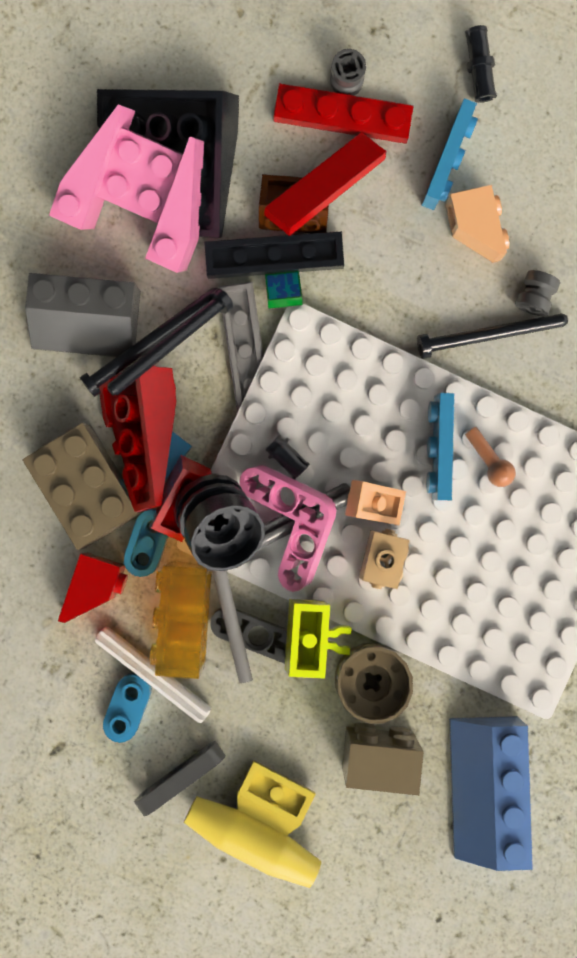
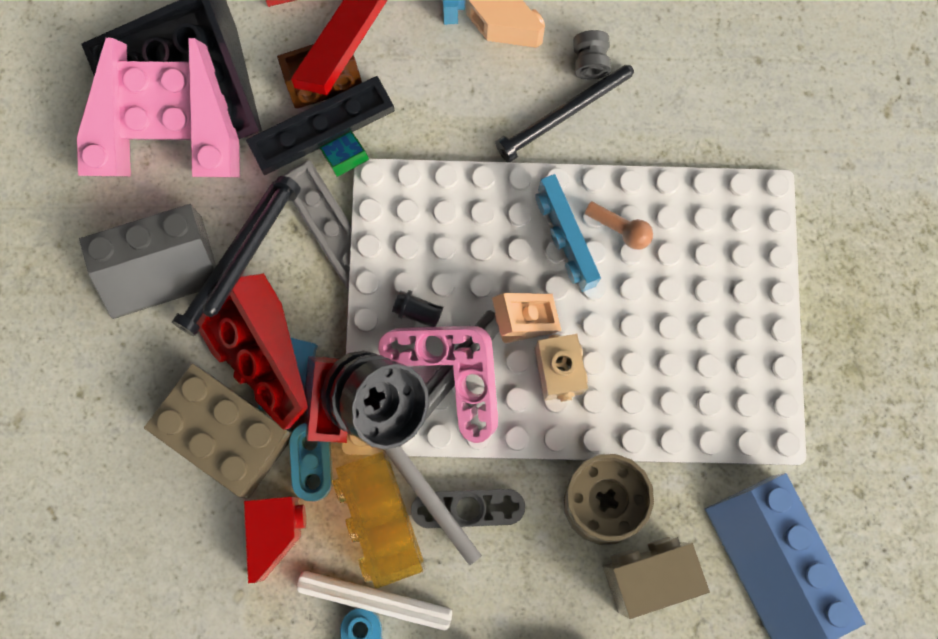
camera: 25 degrees left, 10 degrees down
(308, 638) = (520, 480): neon yellow brick -> none

